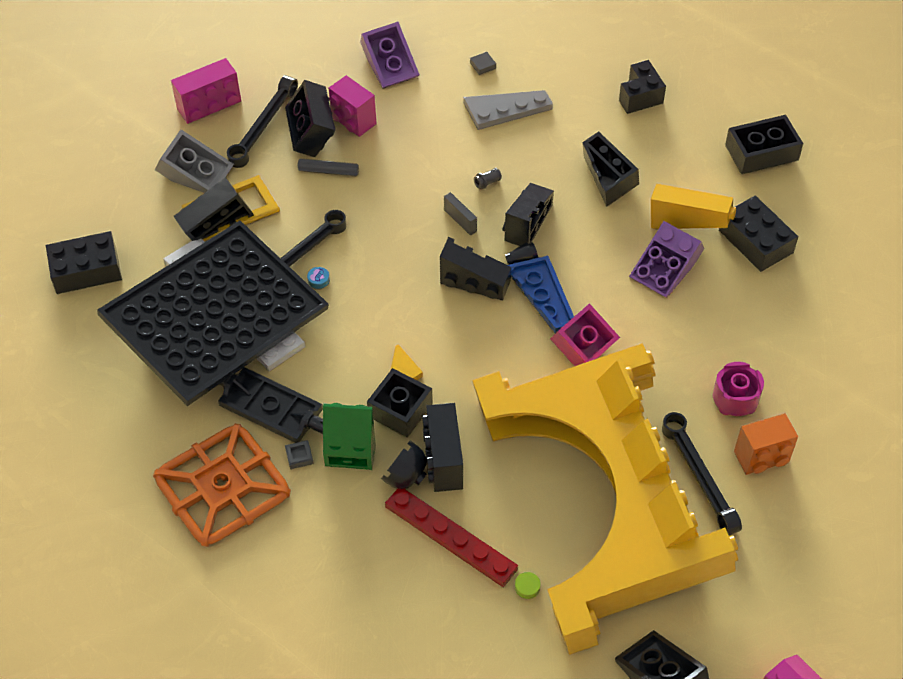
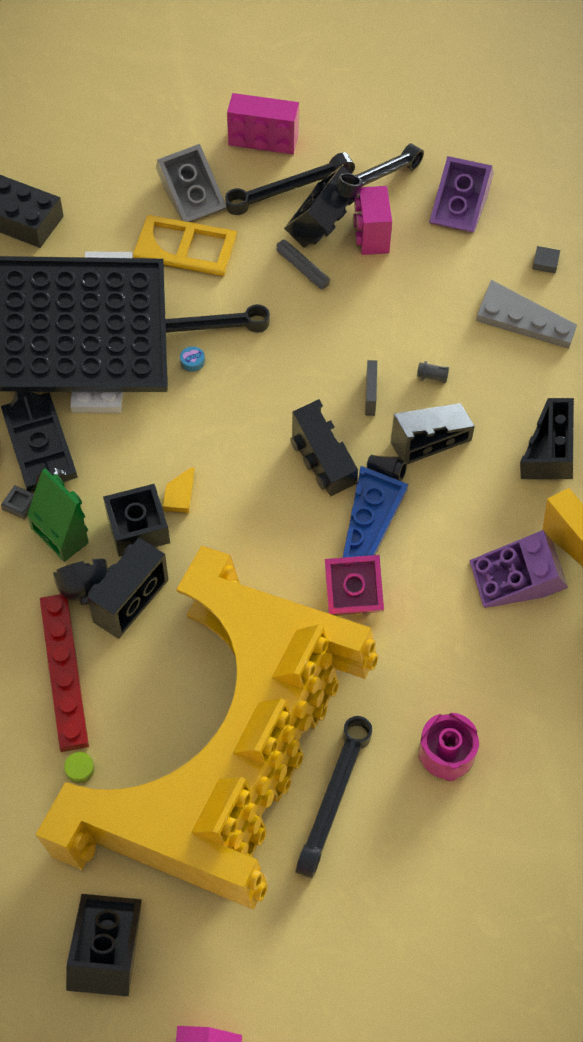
camera: 40 degrees right, 5 degrees up
(212, 210) = (159, 235): black wedge -> none
(324, 86) = (349, 184): none -> black piece
(765, 444) = (414, 818): orange brick -> none

